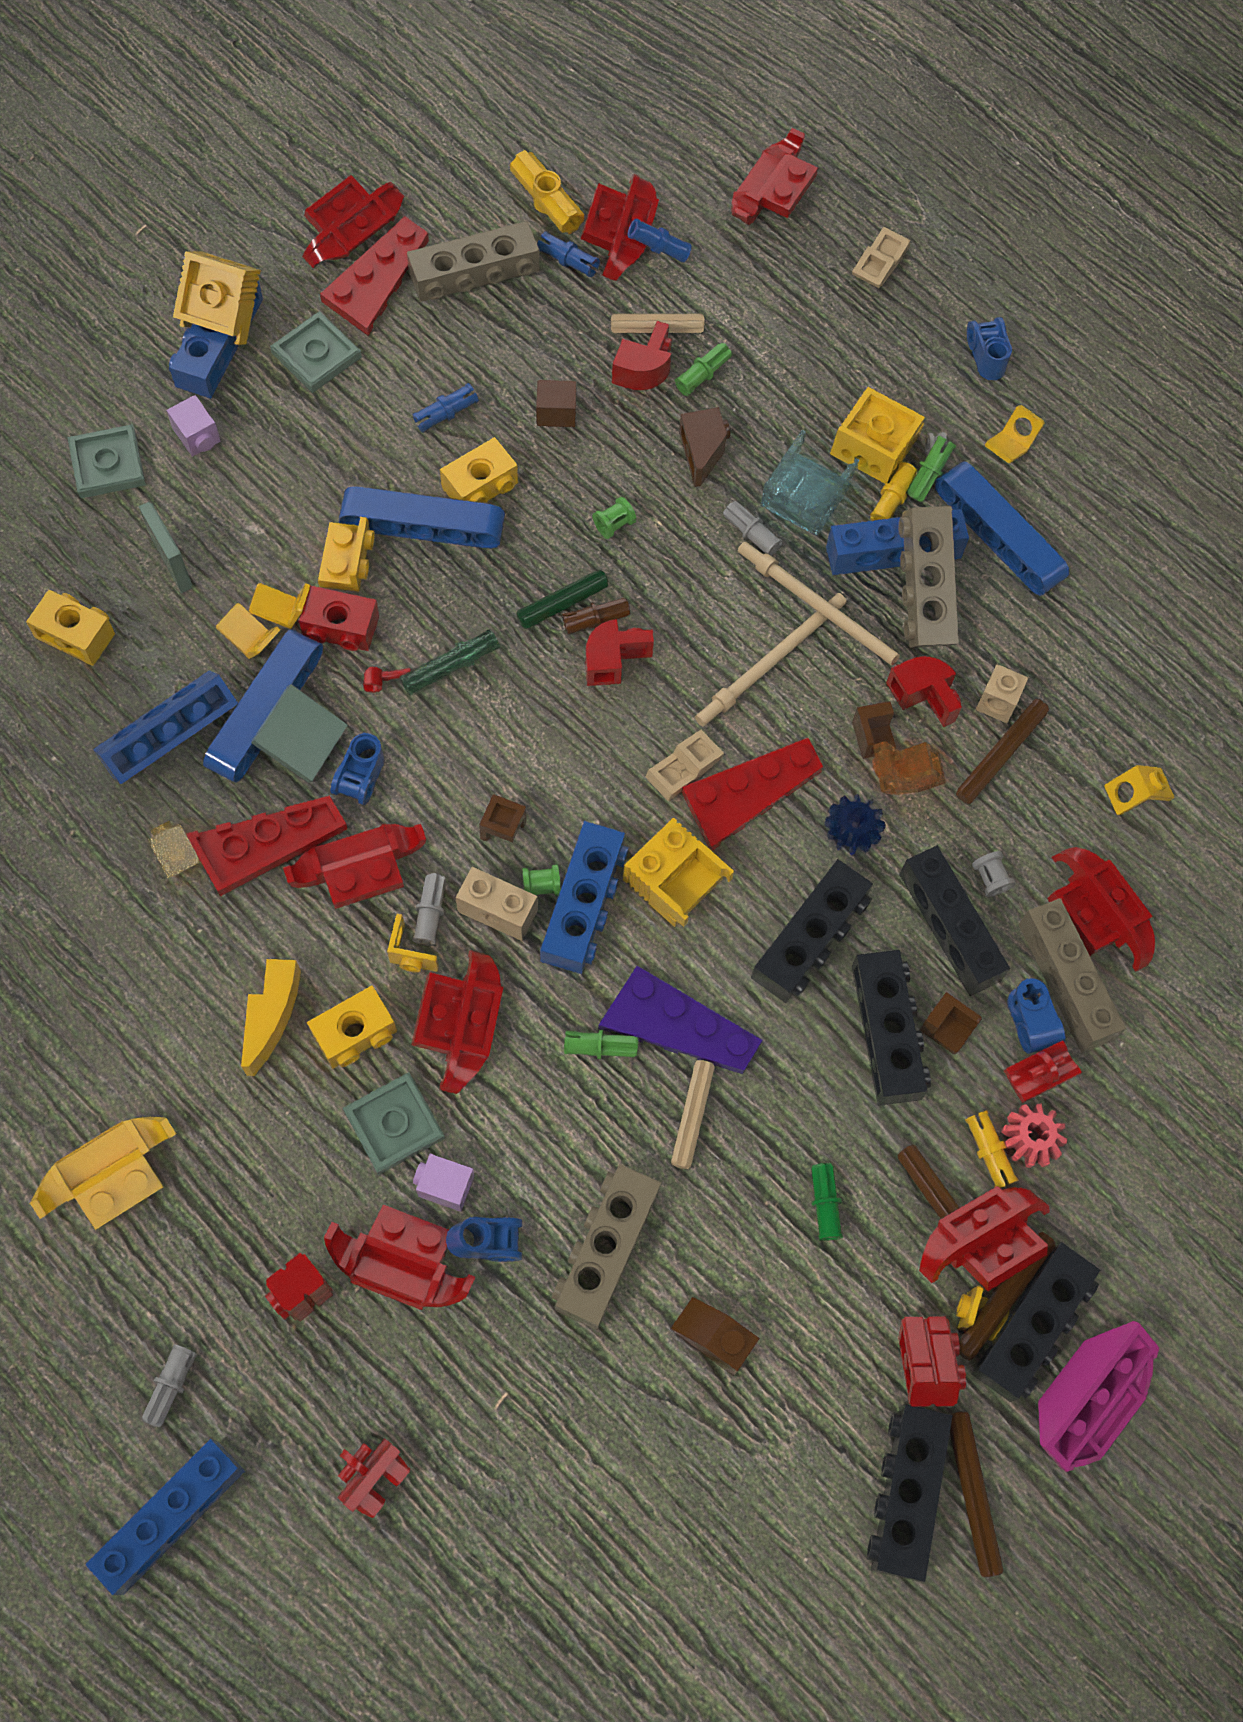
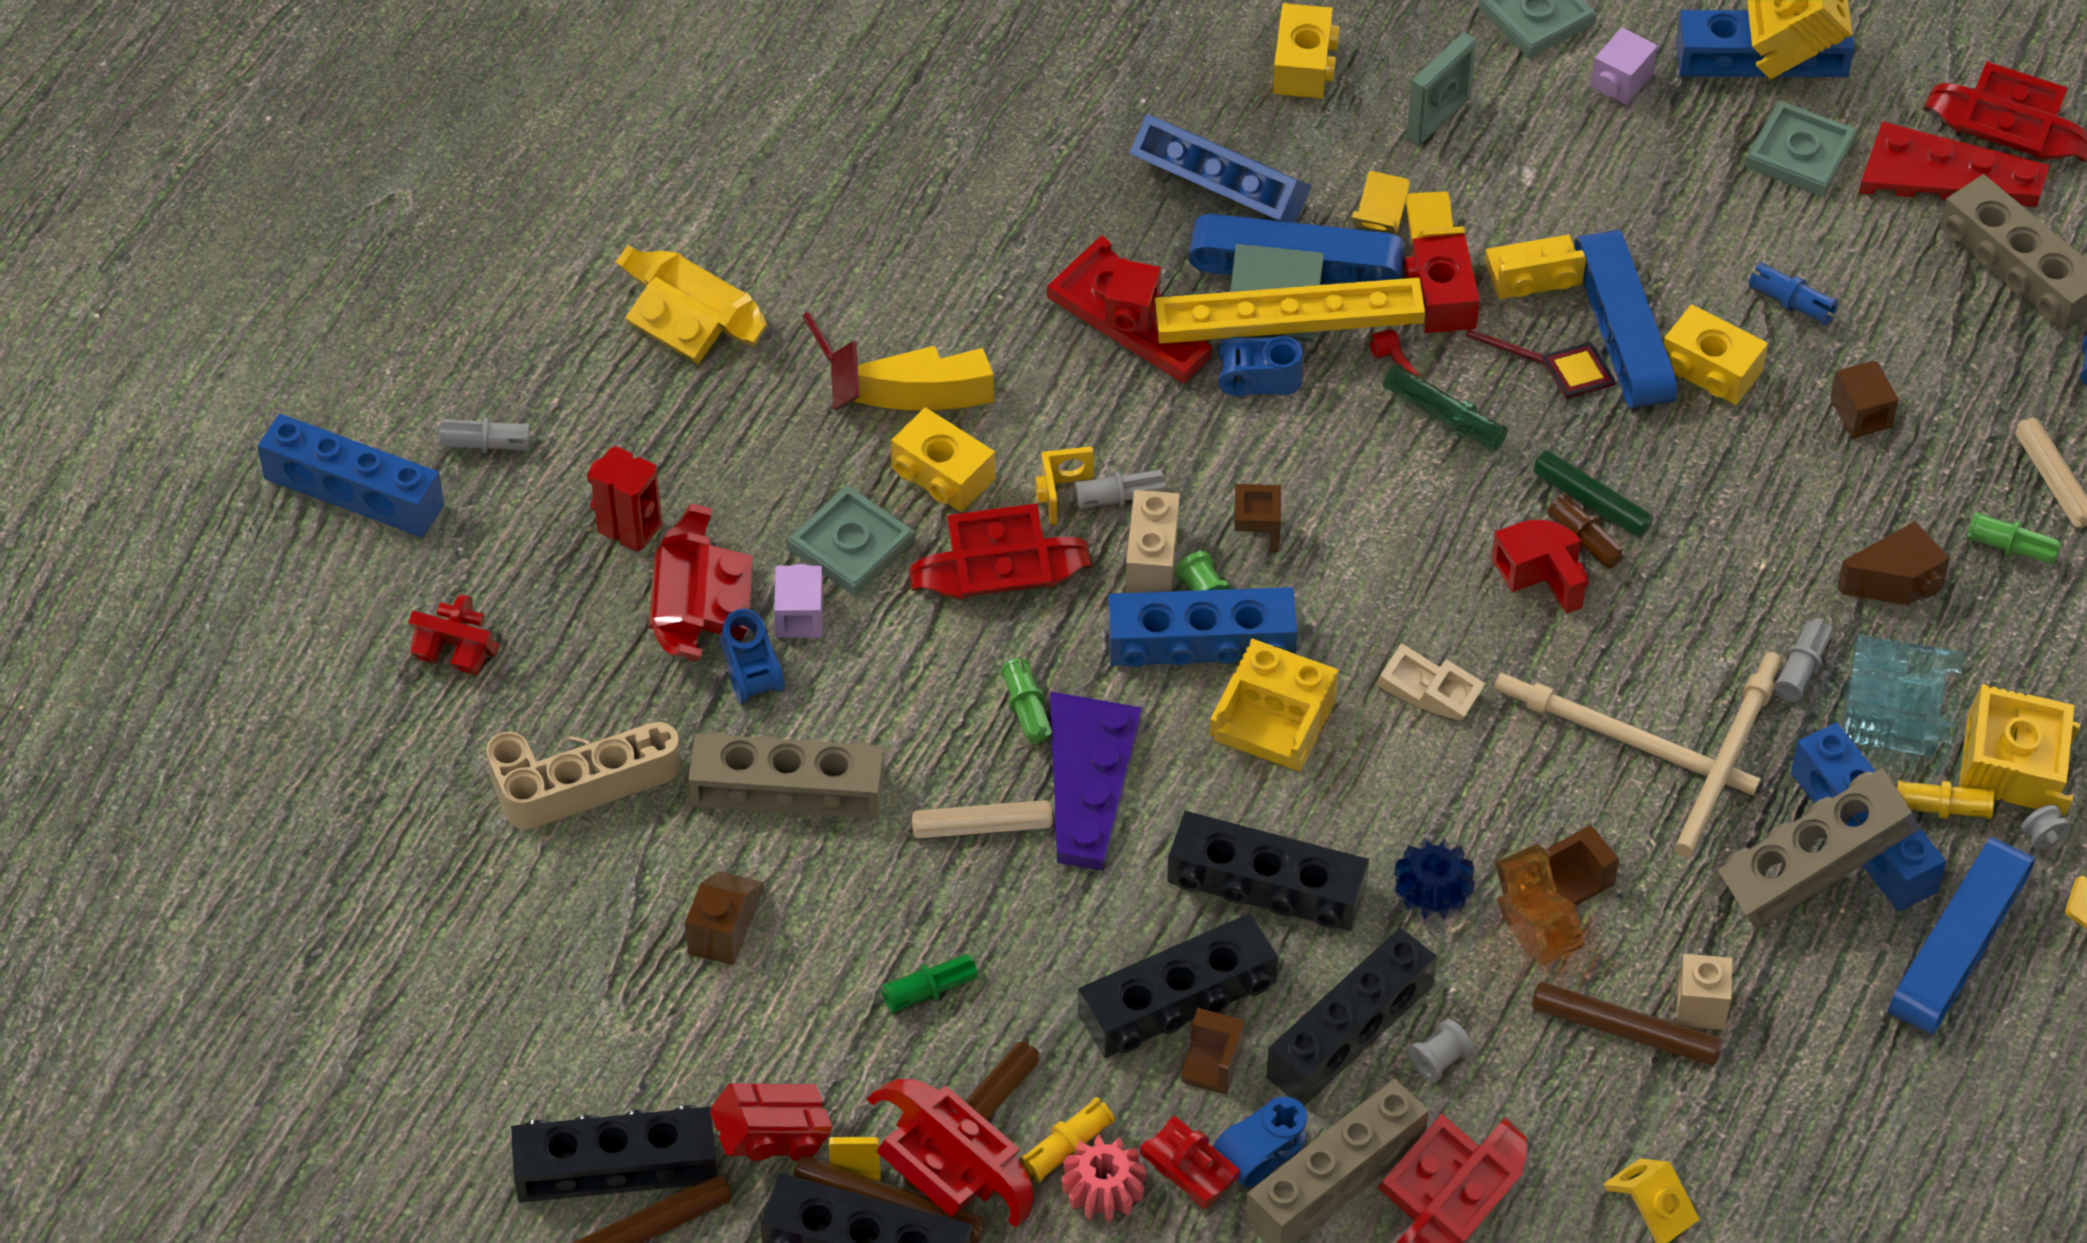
camera: 75 degrees right, 15 degrees down
(172, 848) = (1079, 228): clear yellow bracket -> none
(235, 1070) = (843, 366): none -> dark red piece
(268, 832) = (1132, 296): none -> red brick
(328, 730) = (1289, 310): none -> yellow plate
(357, 864) = (1140, 402): red plate -> none
(443, 567) = (1573, 369): none -> piece
(546, 1402) = (644, 758): none -> tan beam
(614, 517) = (1734, 508): bright green bush -> none
(642, 365) = (1980, 476): red brick -> none
(741, 793) = (1419, 750): red wing -> none
(927, 680) = (1677, 906): red brick -> none
(930, 469) = (2002, 823): bright green axle -> none

